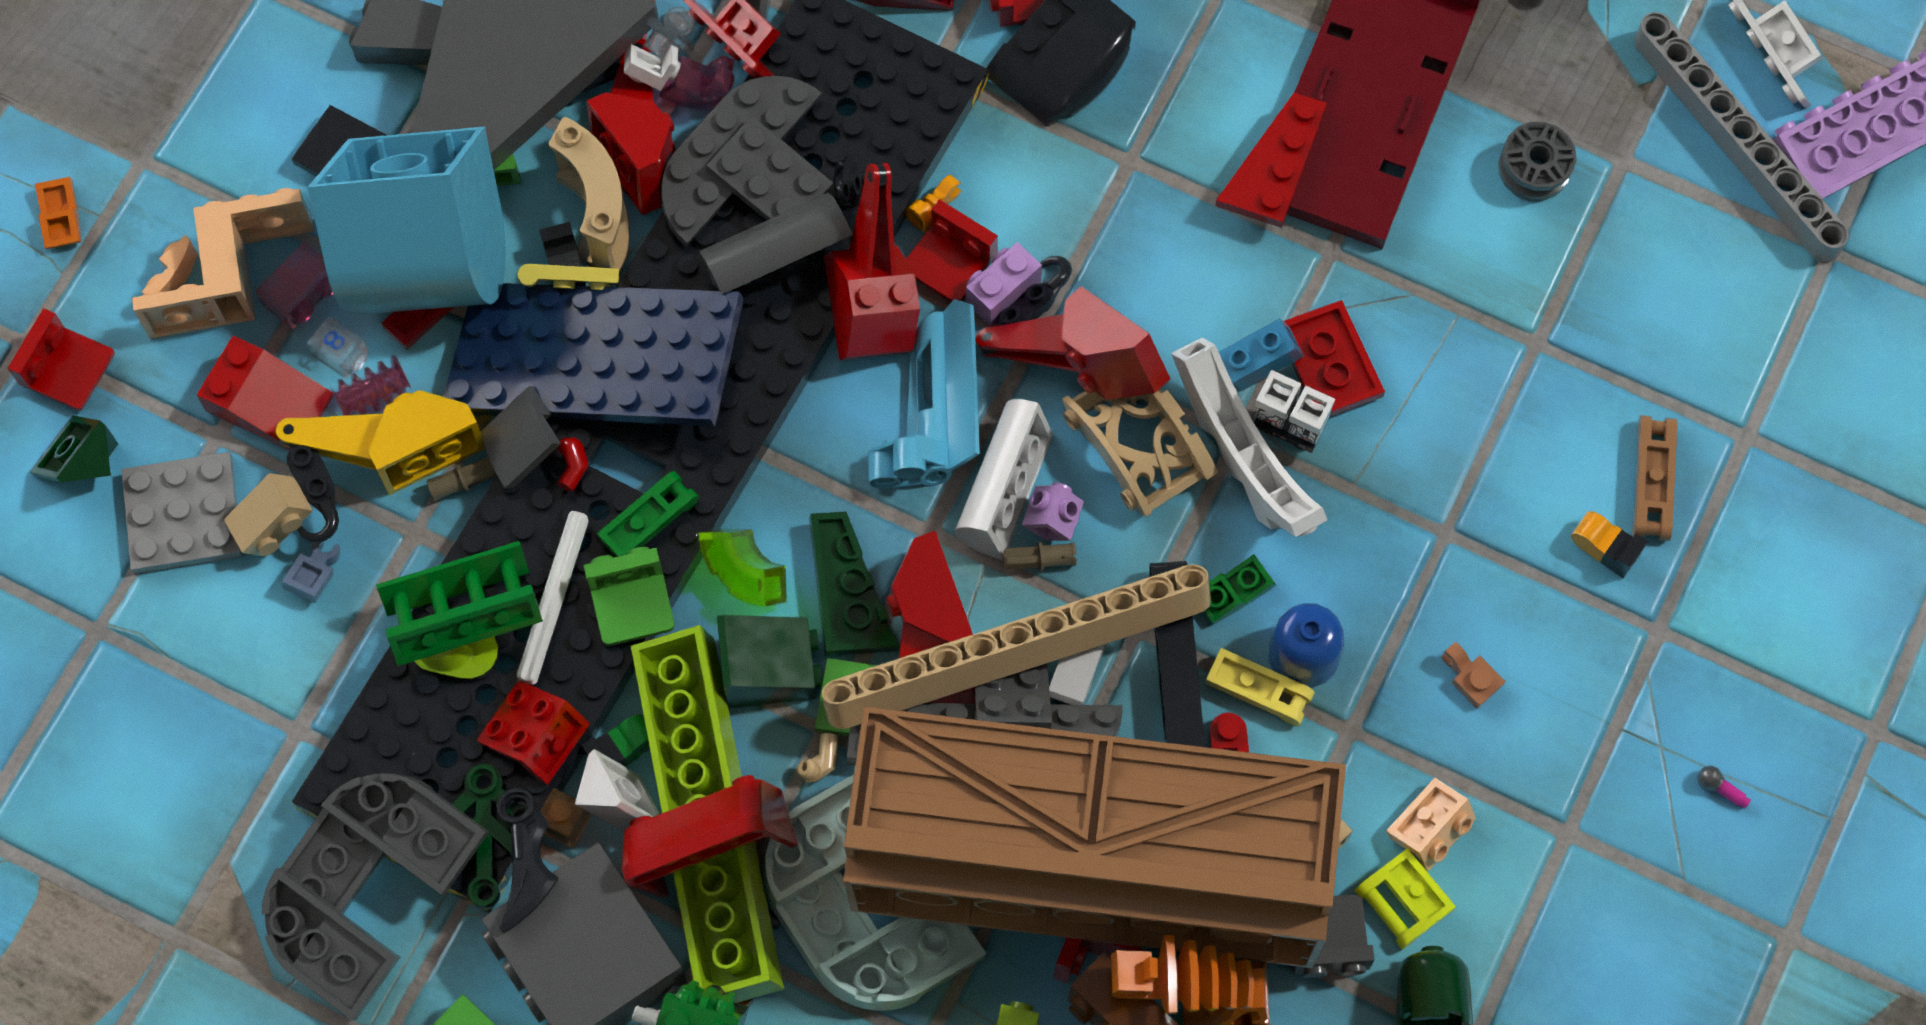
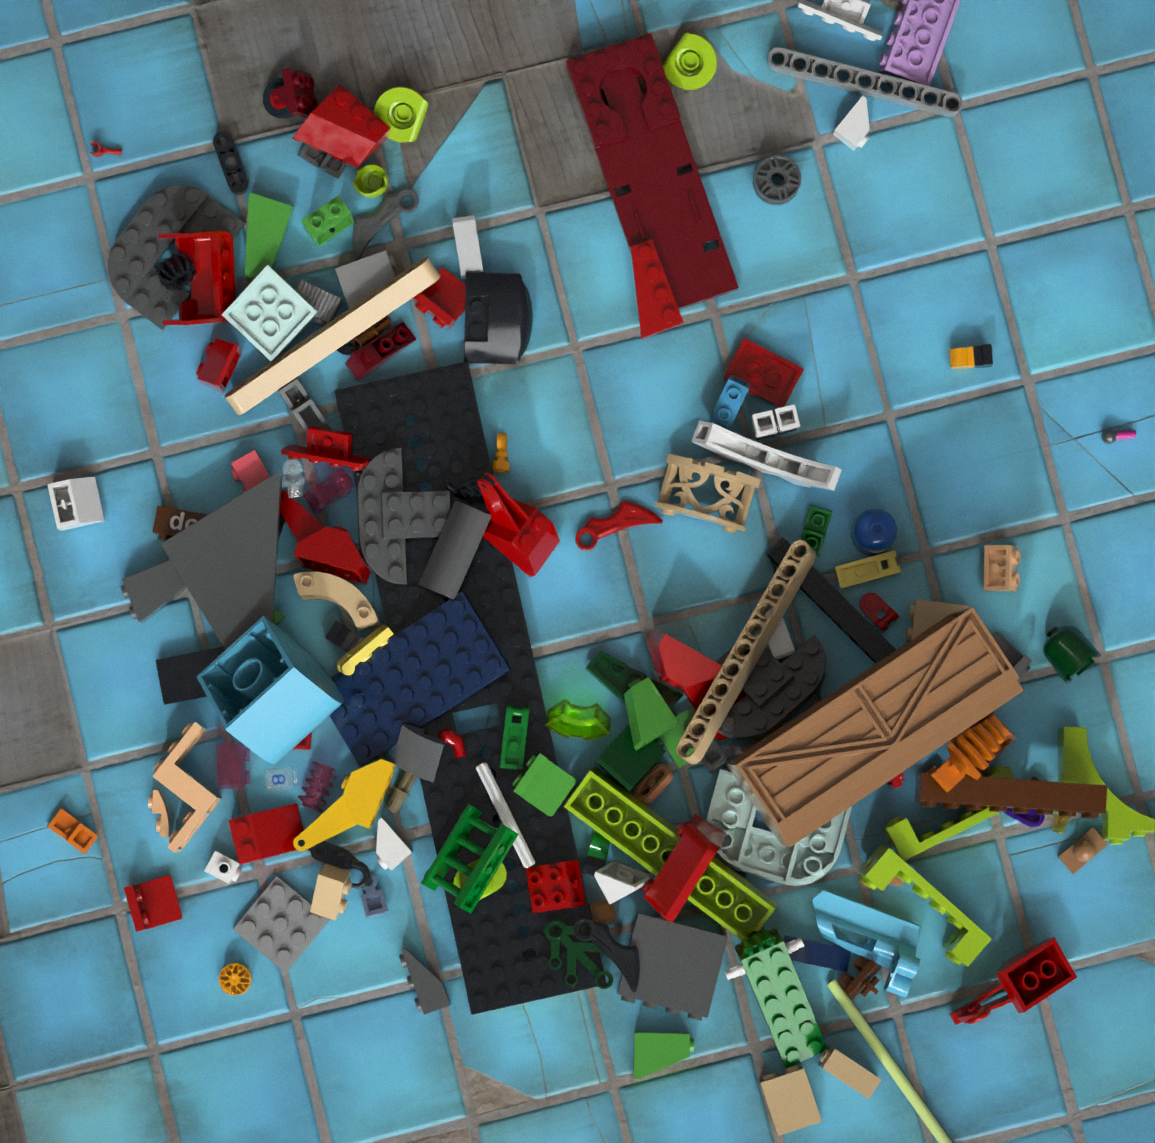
camera: 45 degrees left, 15 degrees up
(68, 527) = (235, 979): none -> light orange wheel
(77, 452) = (204, 942): dark green slope -> none
(177, 378) = (214, 867): none -> white brick
(274, 727) = (428, 987): none -> dark grey slope
(332, 864) = (520, 1023): dark grey plate -> none
(388, 527) = (390, 846): none -> white slope
(650, 69) = (304, 506): white bracket -> none
(765, 719) = (653, 783): none -> nougat plate
(823, 763) = (697, 781): tan arm -> none
(833, 622) = (647, 712): none -> bright green slope
(940, 434) = (610, 571): medium azure panel -> none
(951, 252) = (534, 476): red bracket -> none
(1002, 282) = (574, 469): lavender brick -> none
(1005, 479) = (662, 570): white brick -> none
(1015, 386) = (626, 516): none -> red piece
(1040, 556) = (711, 593): dark tan axle -> none
(1053, 512) = (699, 566): lavender brick -> none
(1089, 338) = (641, 471): red slope -> none
(1414, 890) = (1019, 608): neon yellow plate -> none
(1474, 679) = (963, 479): nougat plate -> none
(1655, 477) = (965, 303): medium nougat plate -> none
(1684, 173) = (855, 126): none -> white slope

